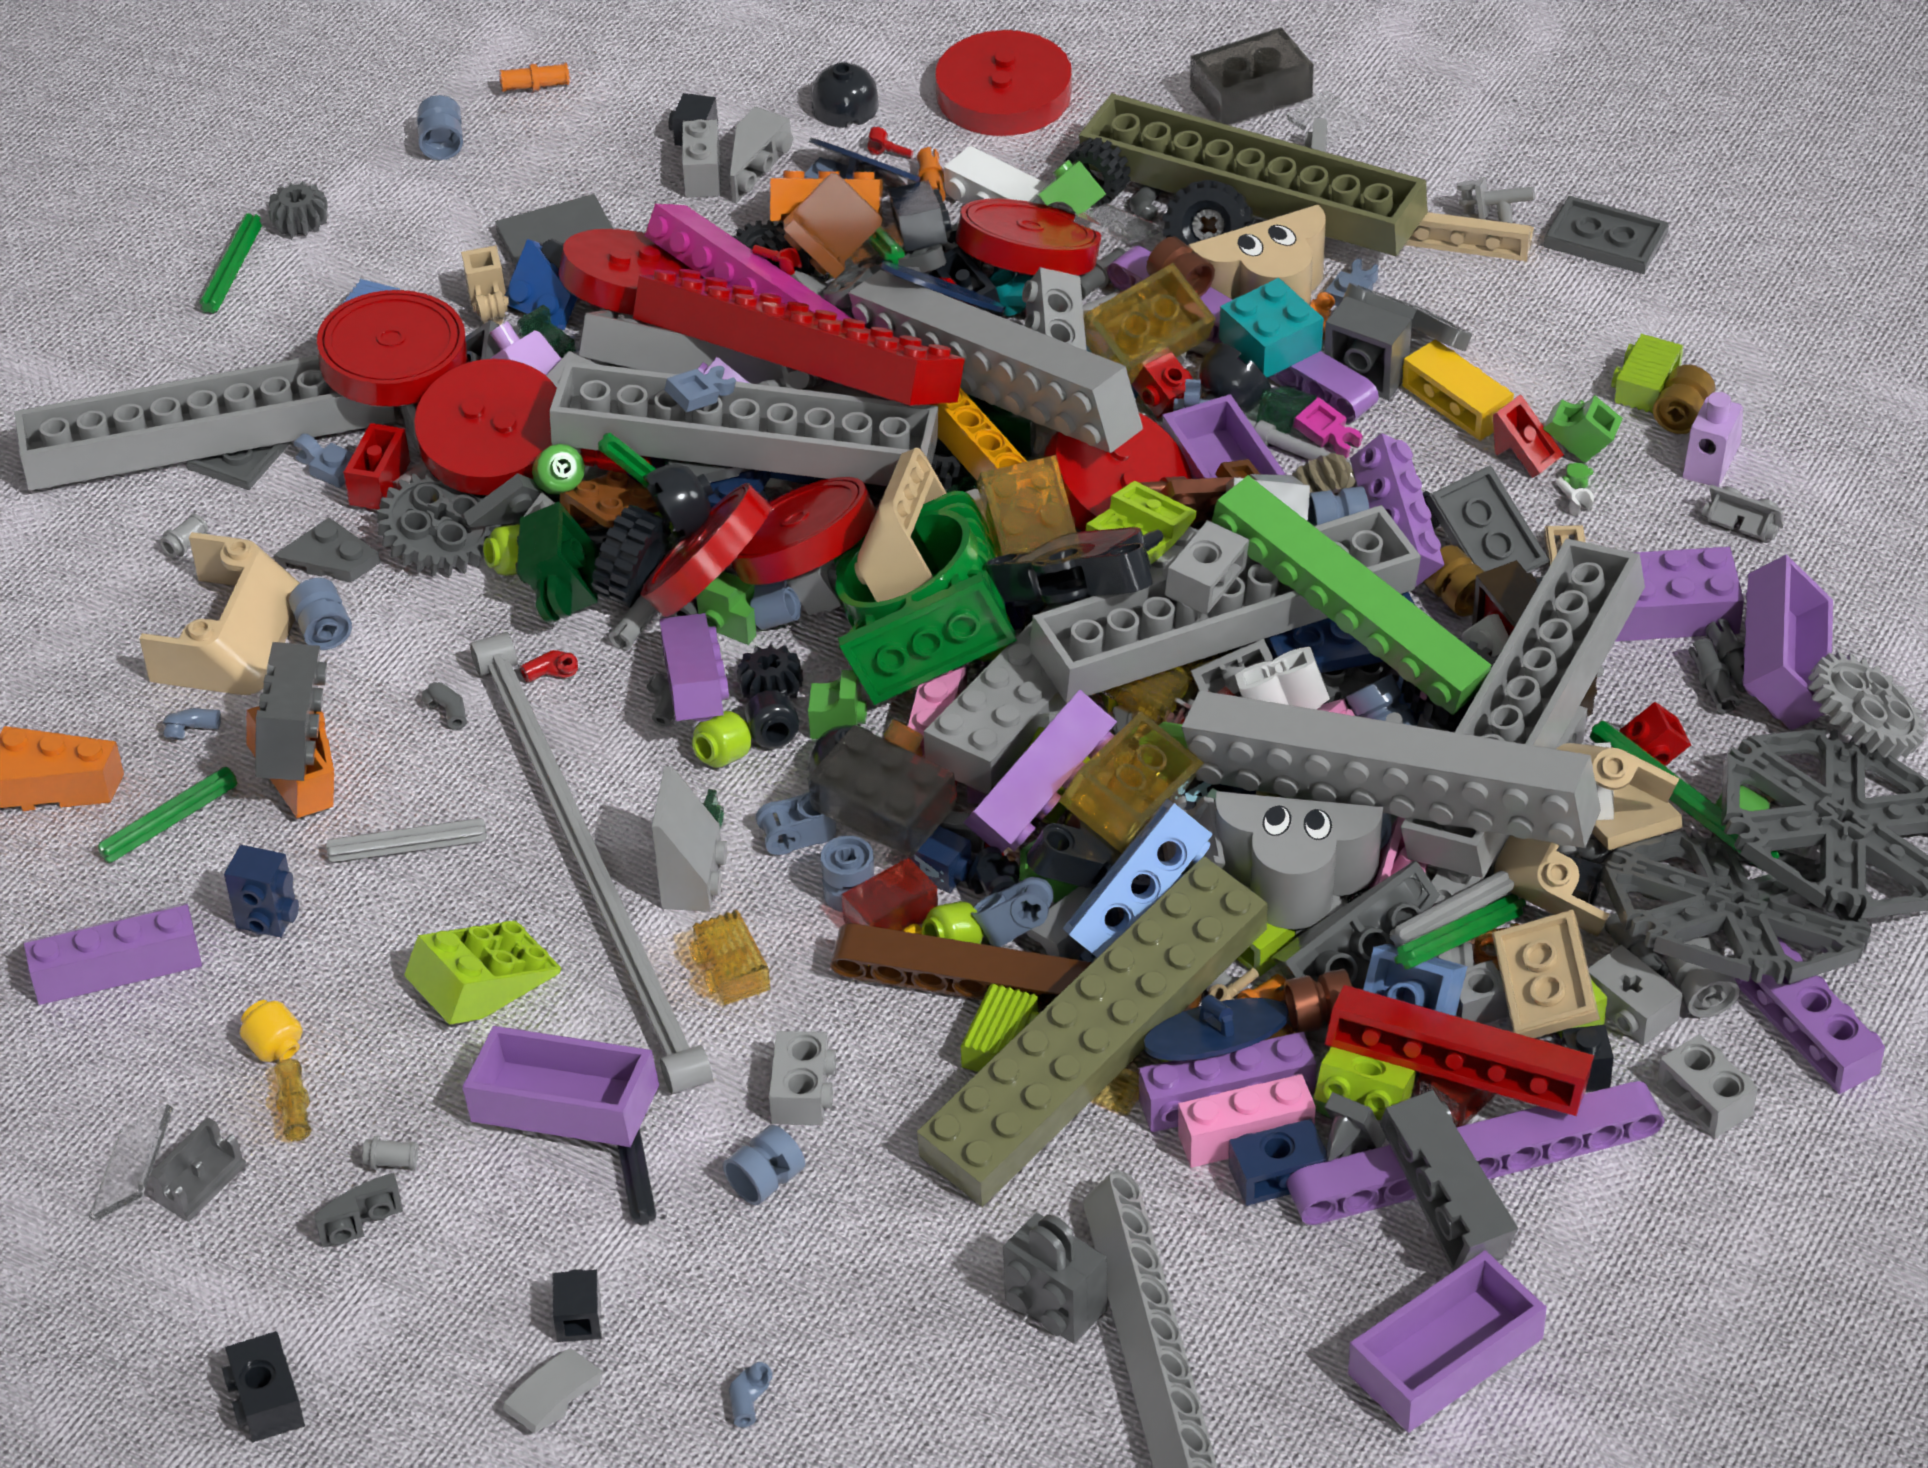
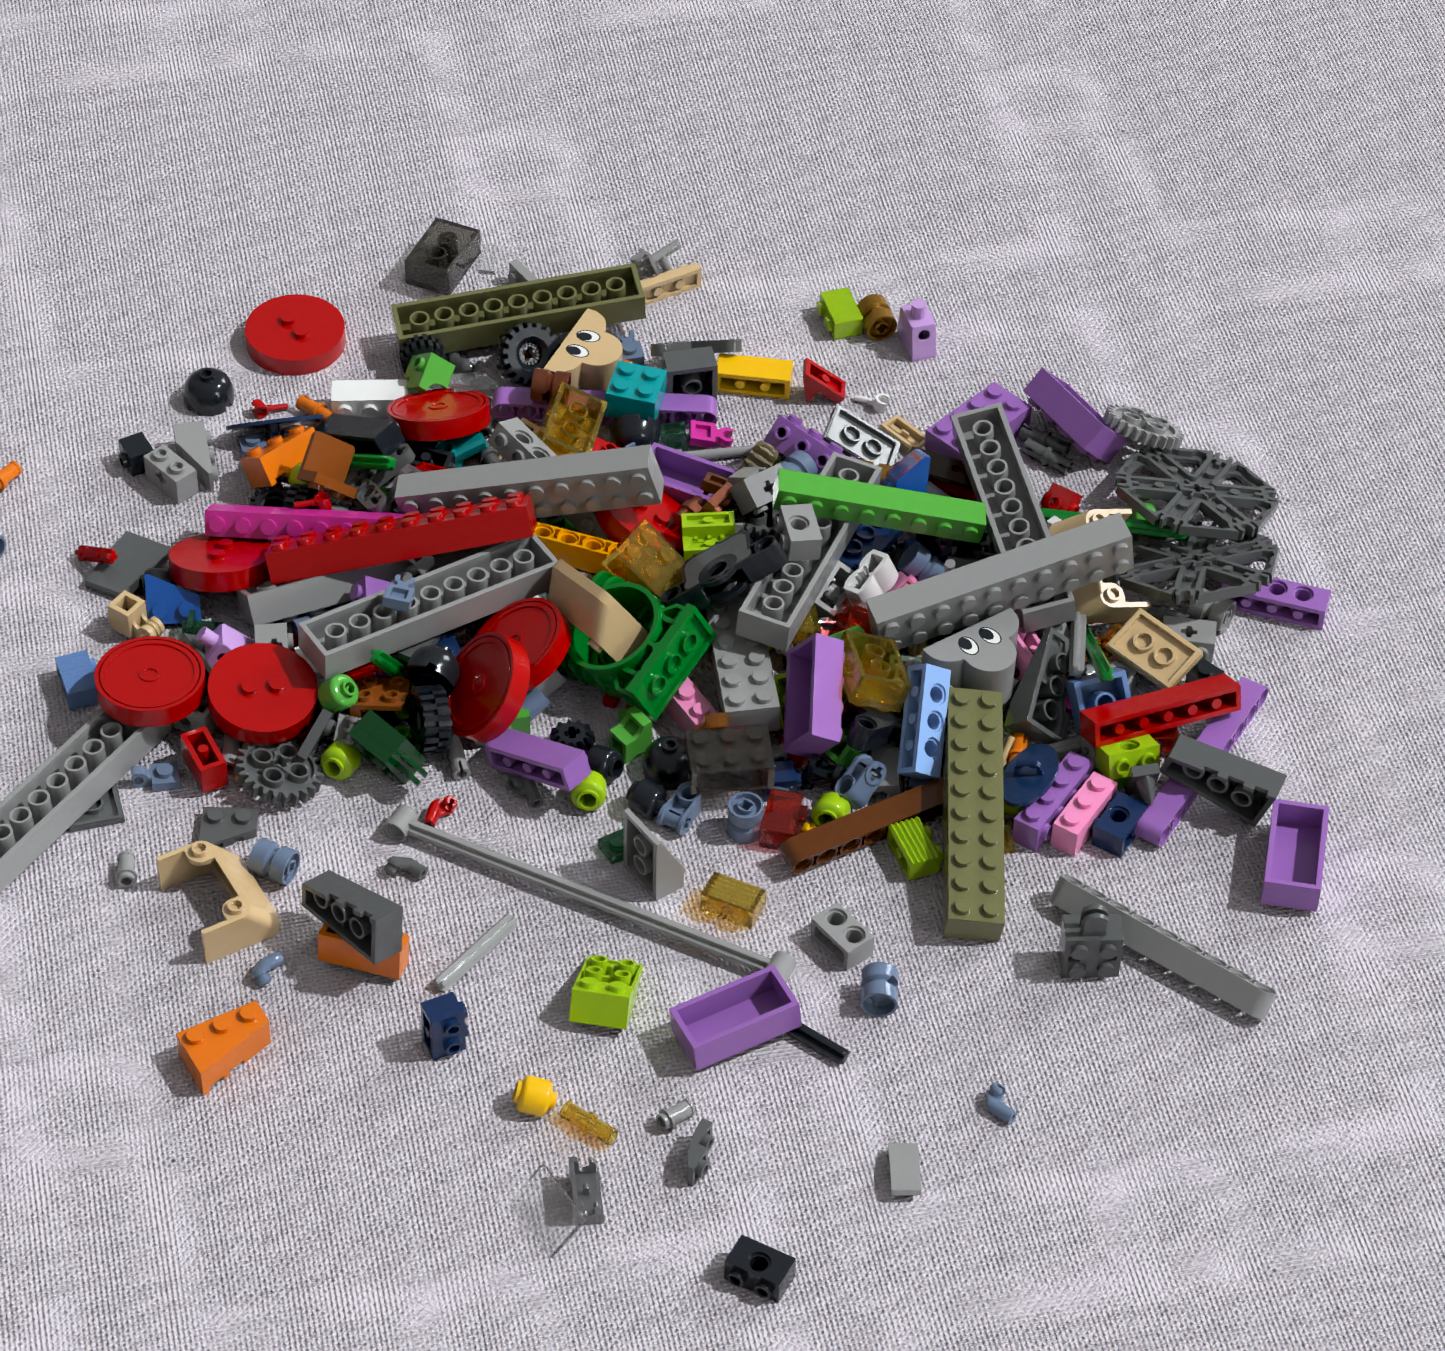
camera: 45 degrees left, 0 degrees up
(112, 953) = (385, 1113): medium lavender slope -> none
(167, 814) = (319, 1025): green axle -> none
(531, 200) = (96, 554): none -> red axle
(577, 1305) = (868, 1120): black brick -> none
(768, 781) = (646, 798): none -> black head
(942, 286) = (442, 465): dark blue shield -> none
(1313, 1001) = (1060, 729): copper wheel -> none
(1454, 595) = (910, 472): none -> blue slope
(1578, 475) = (862, 388): bright green piece -> none
(1583, 426) = (846, 359): bright green brick -> none
(1606, 234) = (729, 248): dark grey tile -> none
(1707, 1086) = (1268, 661): light grey brick -> none
(1759, 516) = (957, 363): light grey hinge -> none

